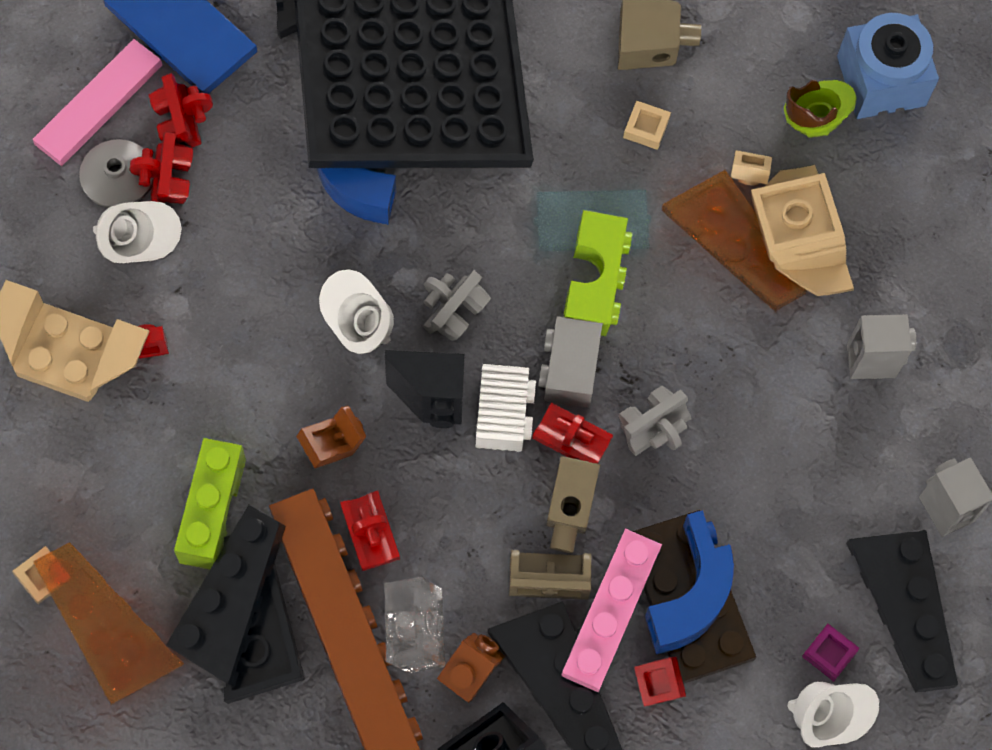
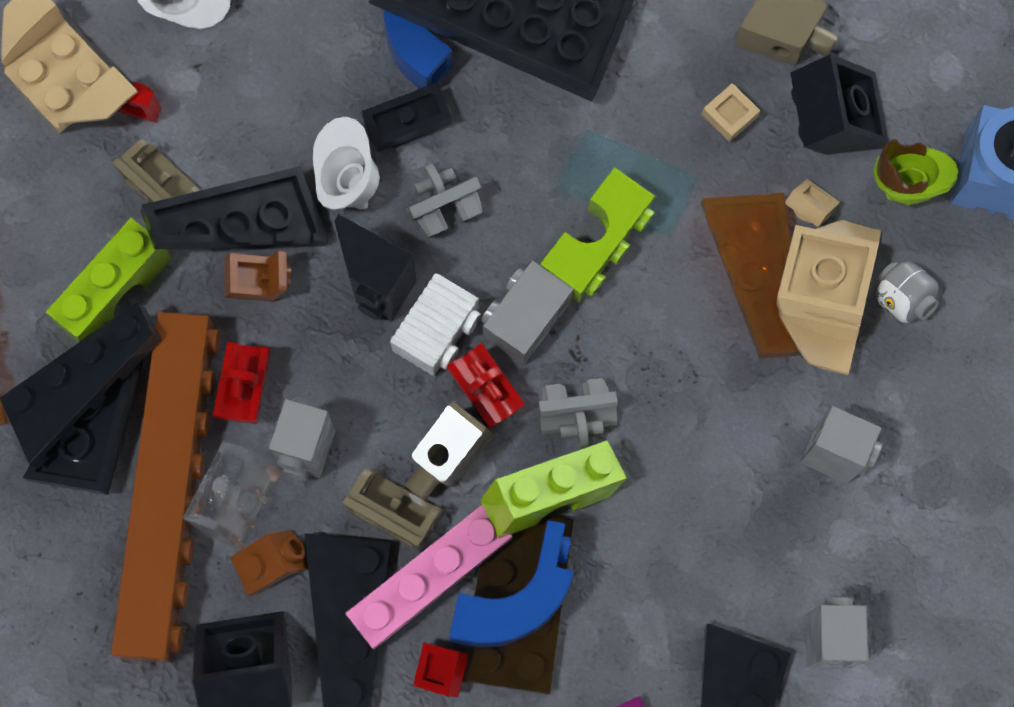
camera: 30 degrees right, 5 degrees up
(204, 402) = (152, 173): none -> dark tan hinge
(295, 391) = (240, 214): none -> black wing
(385, 248) = (406, 117): none -> black plate
(449, 551) = (302, 440): none -> light grey brick
(682, 479) = (532, 493): none -> lime arch
(730, 82) = (838, 107): none -> black slope
(863, 203) = (907, 291): none -> light grey head

